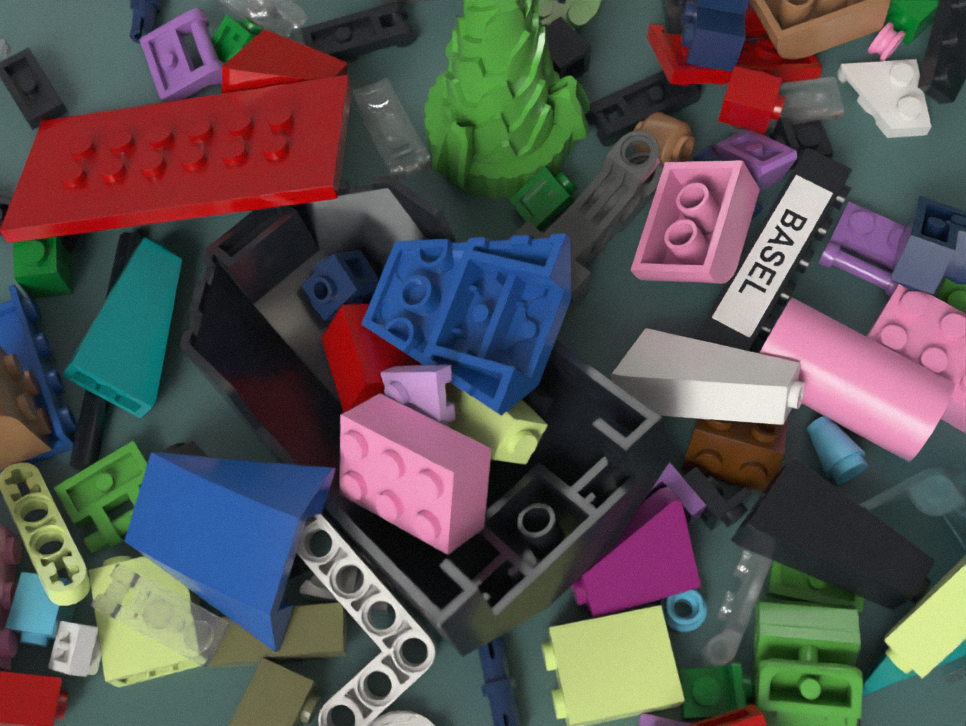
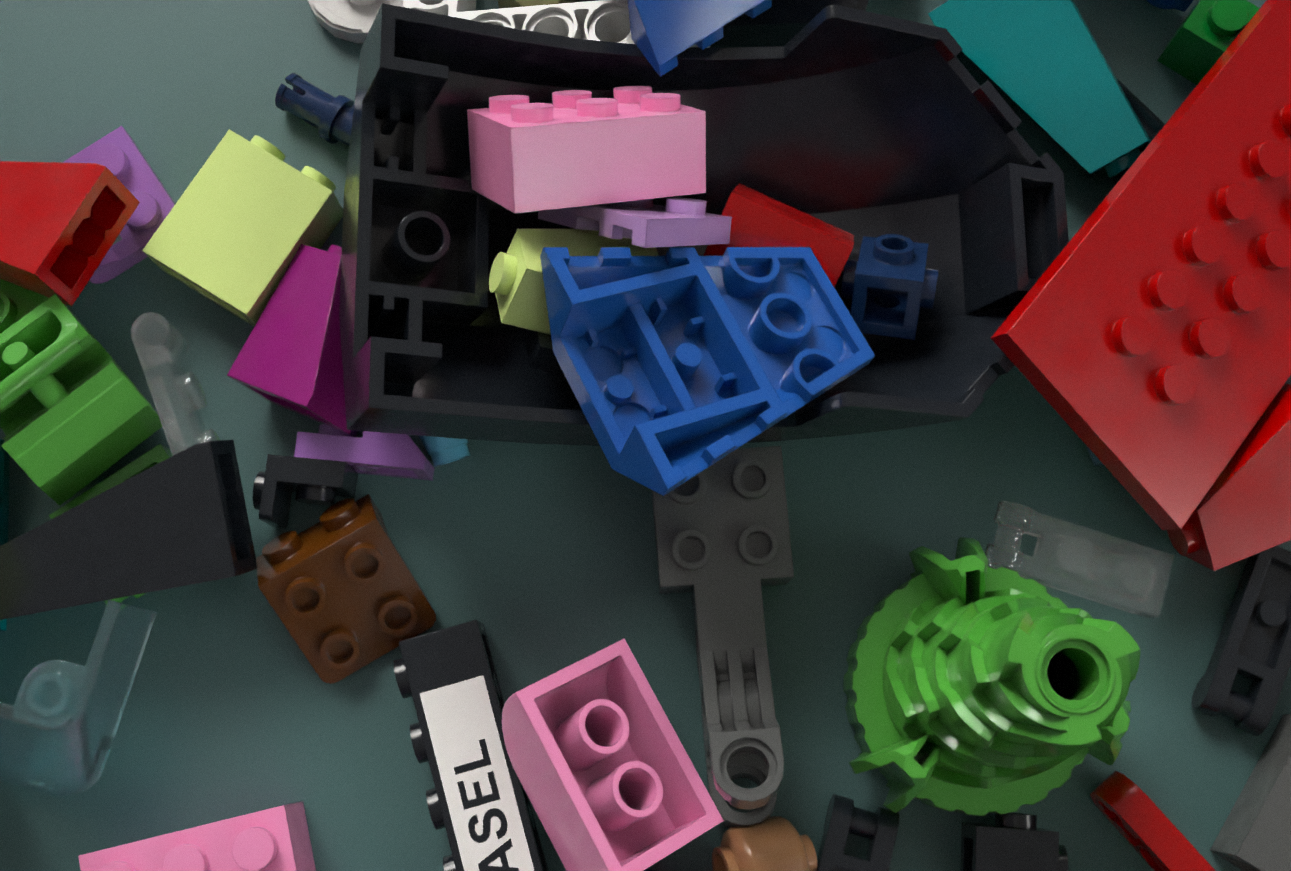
camera: 130 degrees right, 10 degrees up
(544, 197) = (817, 651): green bracket -> none
(697, 605) = (220, 346): medium azure plate -> none
(708, 380) = (417, 582): white slope -> none
(714, 691) = (134, 293): green bracket -> none
(836, 451) = (222, 671): medium azure cone -> none
(860, 380) = (259, 757): bright pink brick -> none

